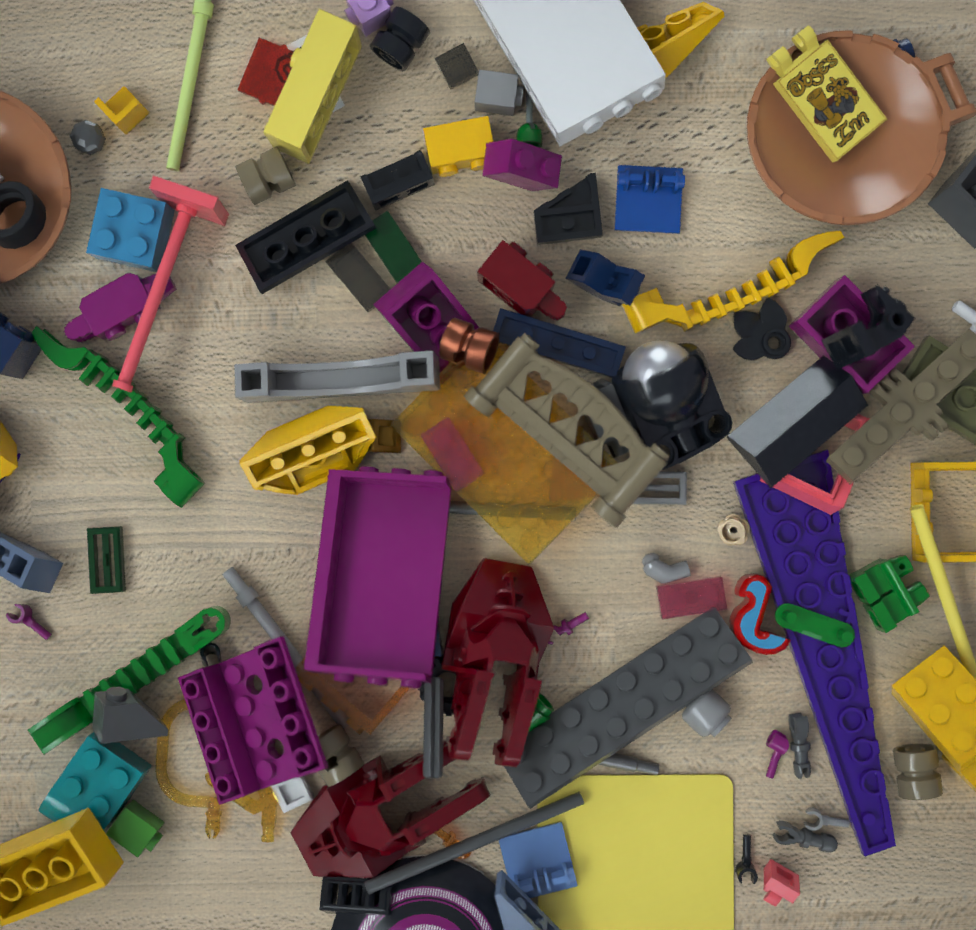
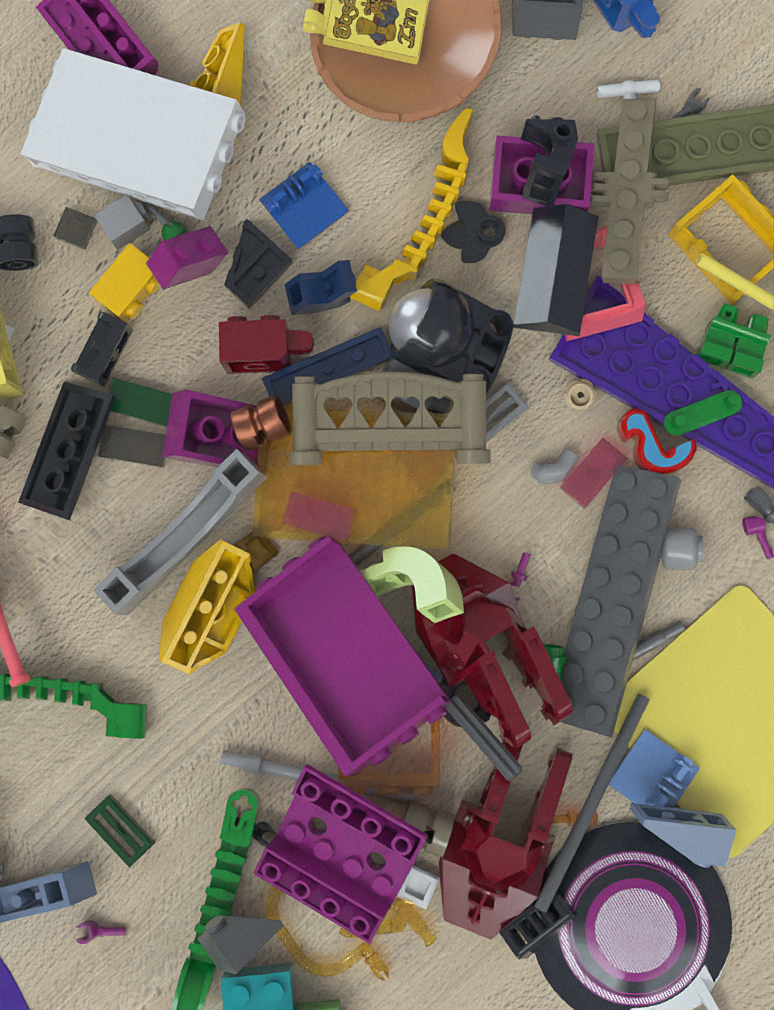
camera: 40 degrees left, 5 degrees down
(494, 584) = (435, 587): none -> yellowish green arch

